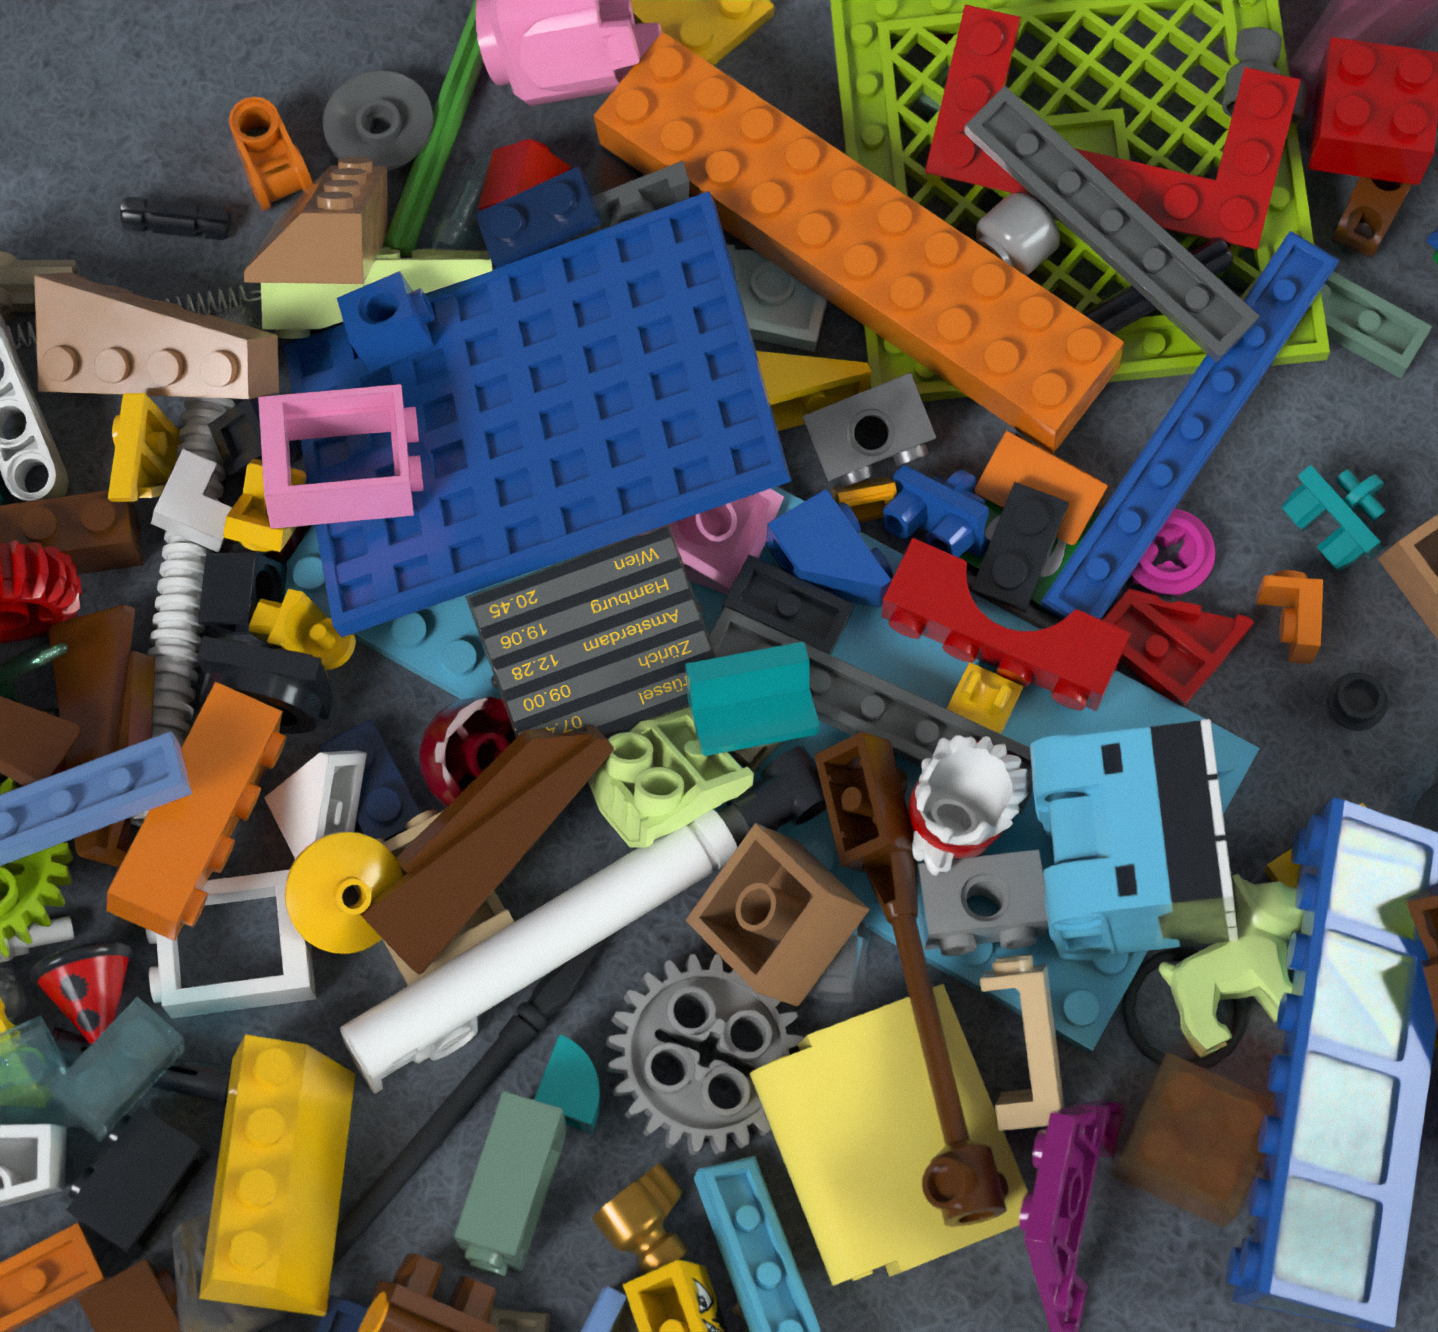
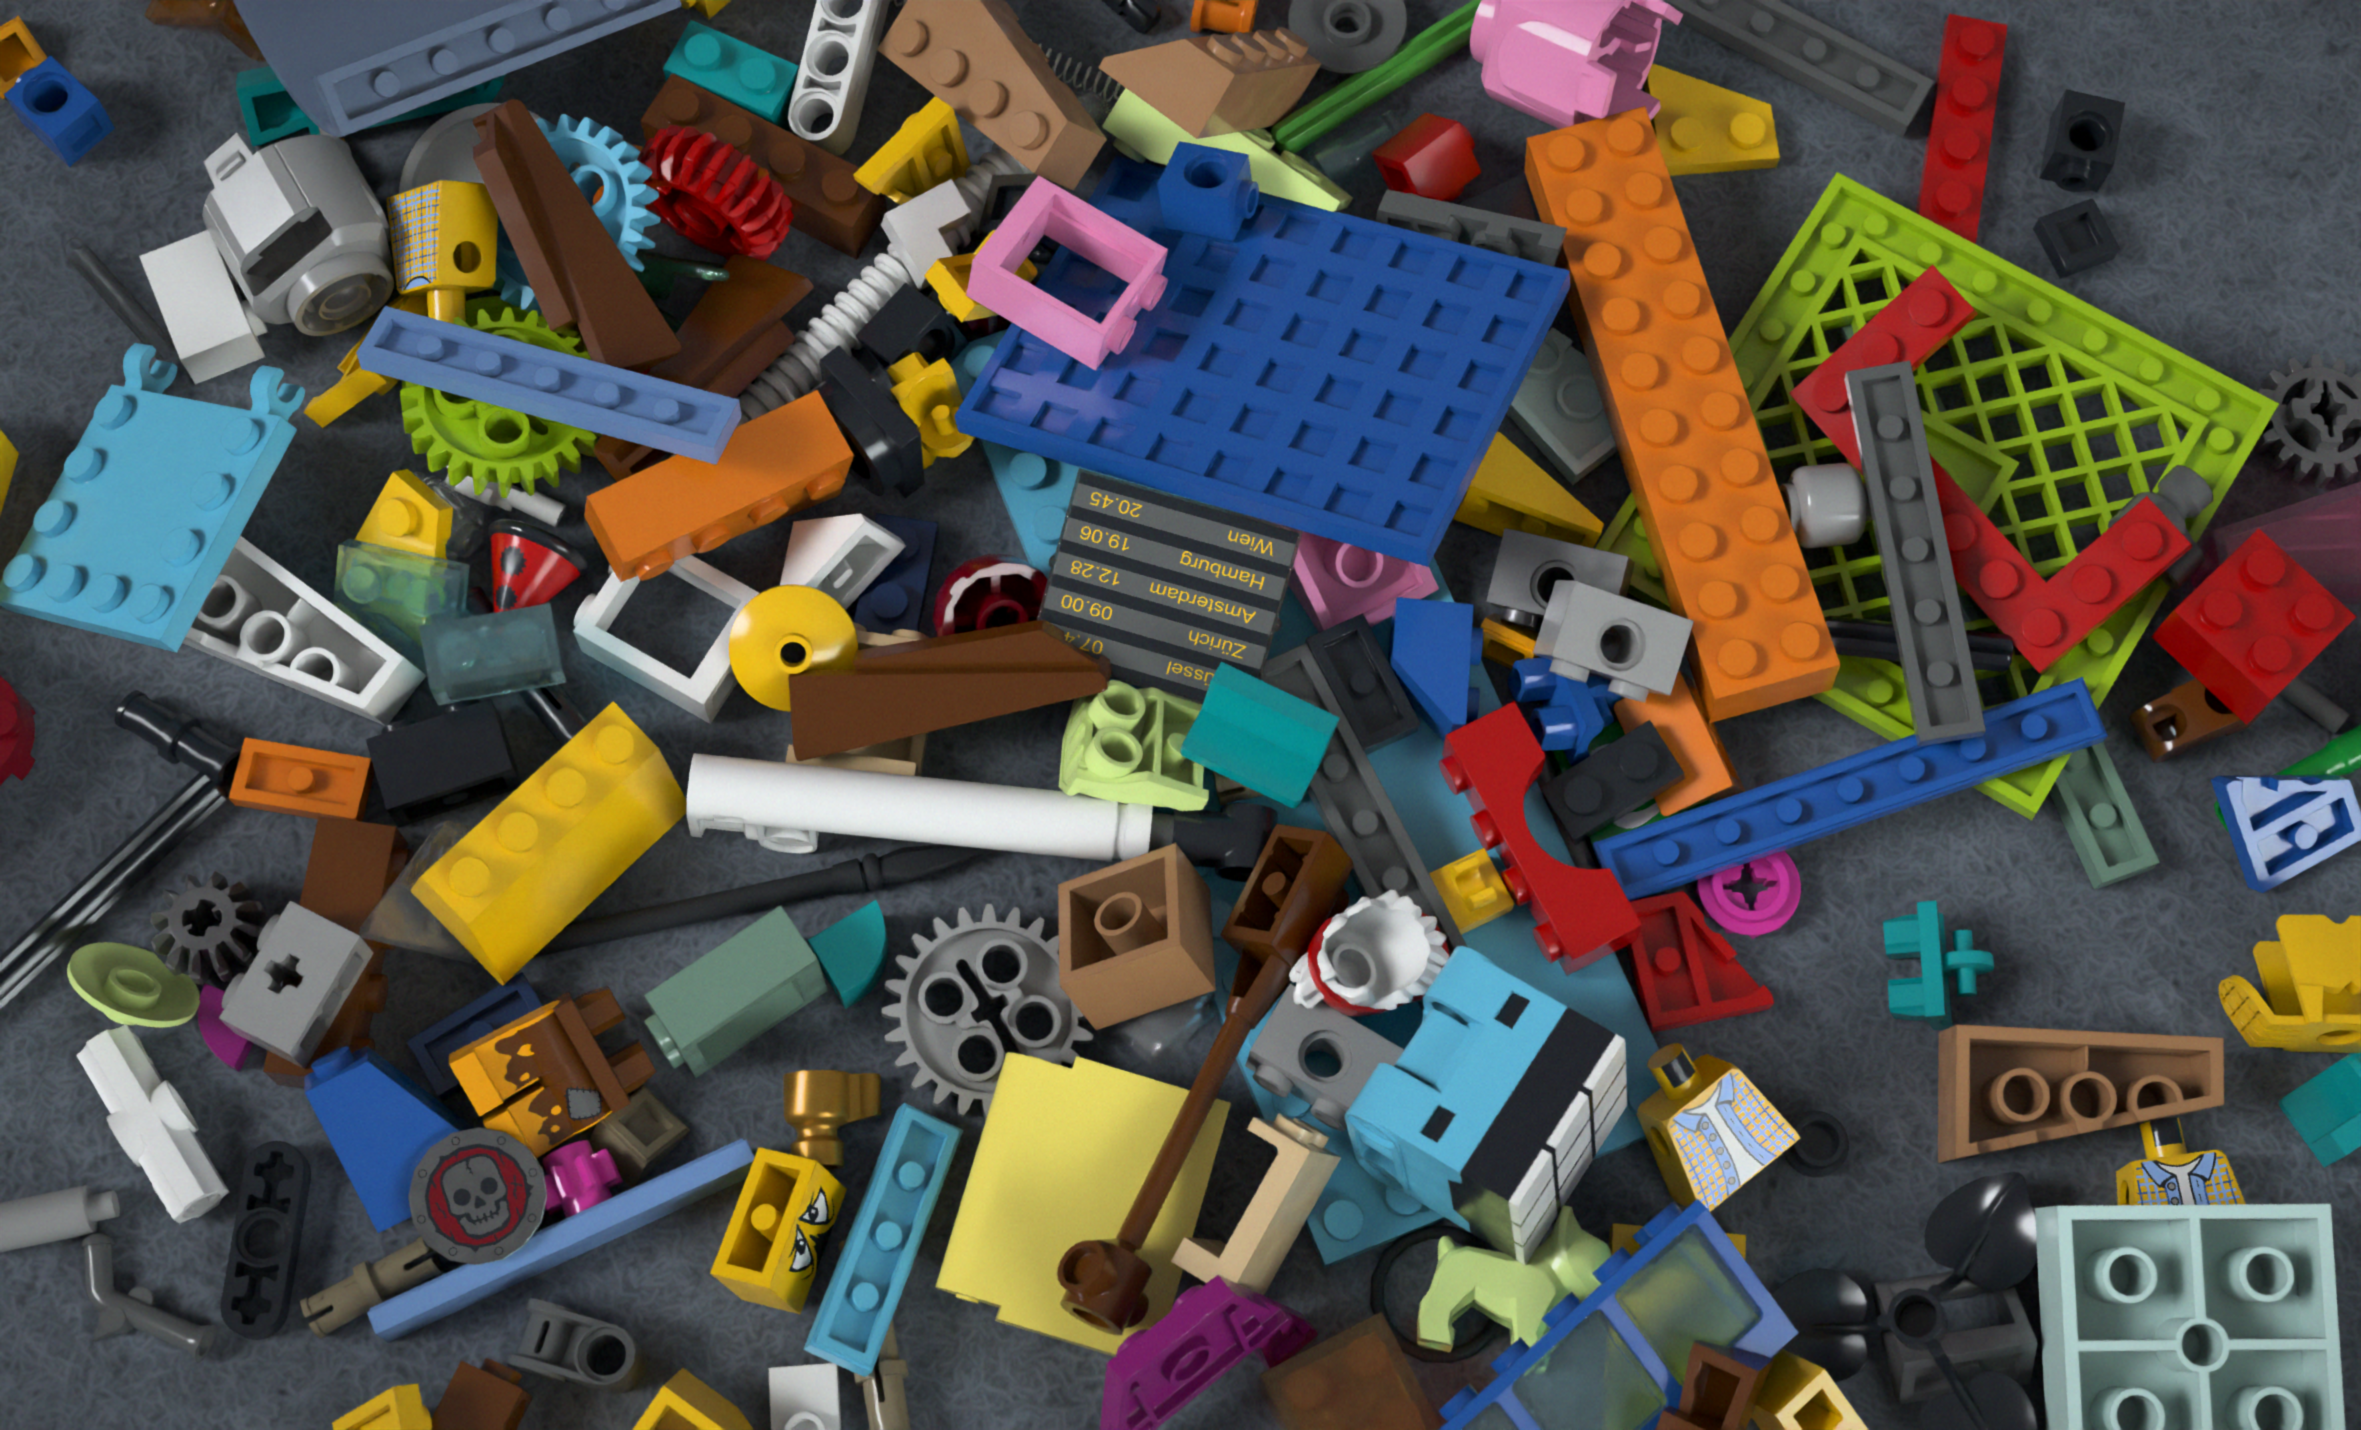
camera: 35 degrees right, 0 degrees up
(539, 218) = (1407, 193): dark blue plate -> none
(973, 422) = (1649, 648): none -> light grey brick
(1283, 745) = (1709, 1126): none -> torso
(1303, 620) = (1817, 1035): orange bracket -> none

